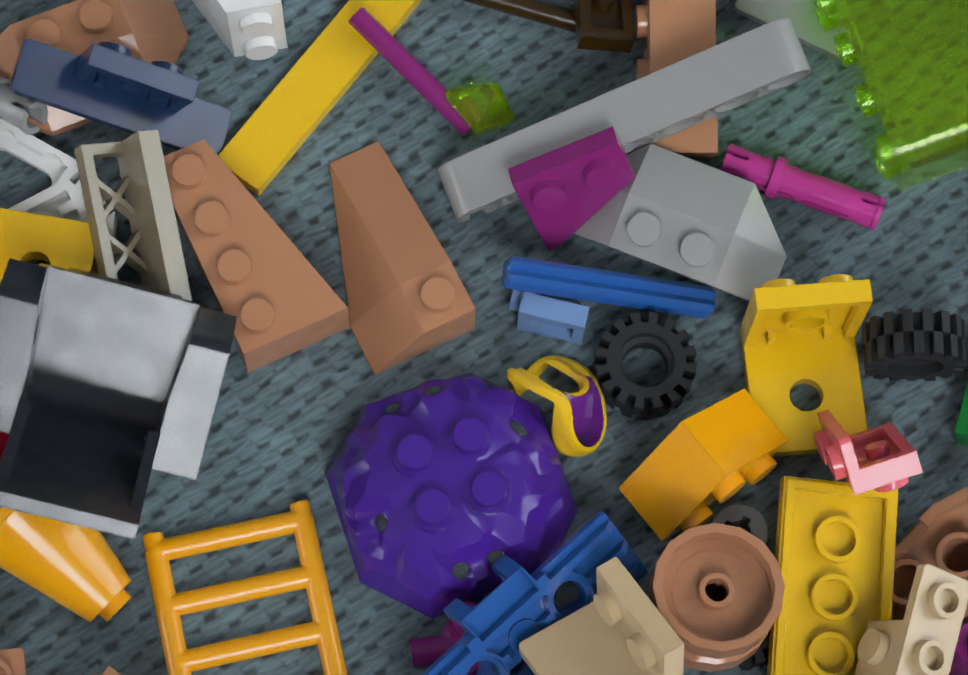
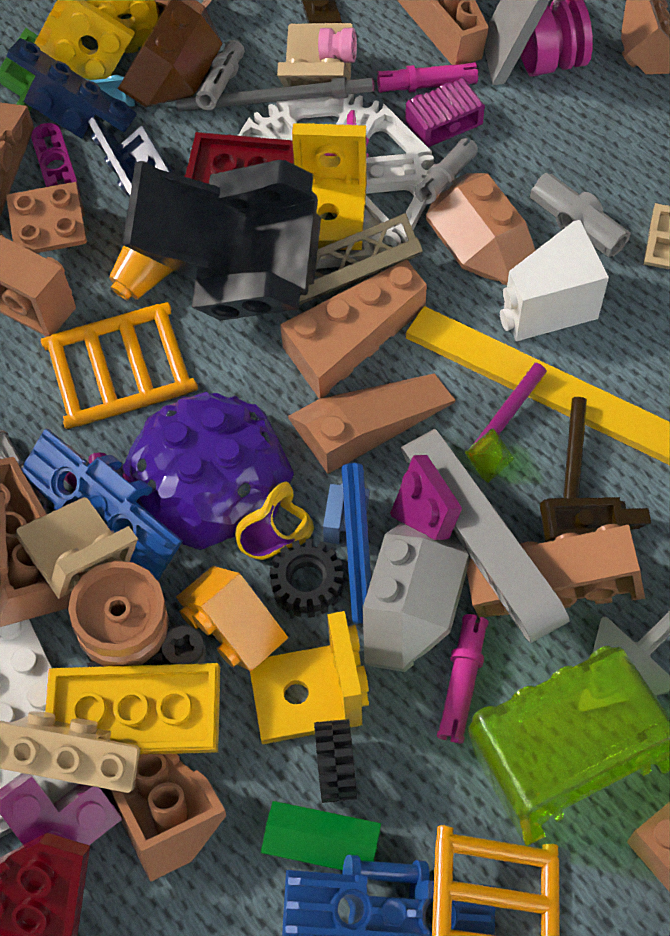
camera: 90 degrees right, 10 degrees down
(120, 92) = (448, 240): dark blue bracket -> none
(868, 459) = (235, 719): coral bracket -> none

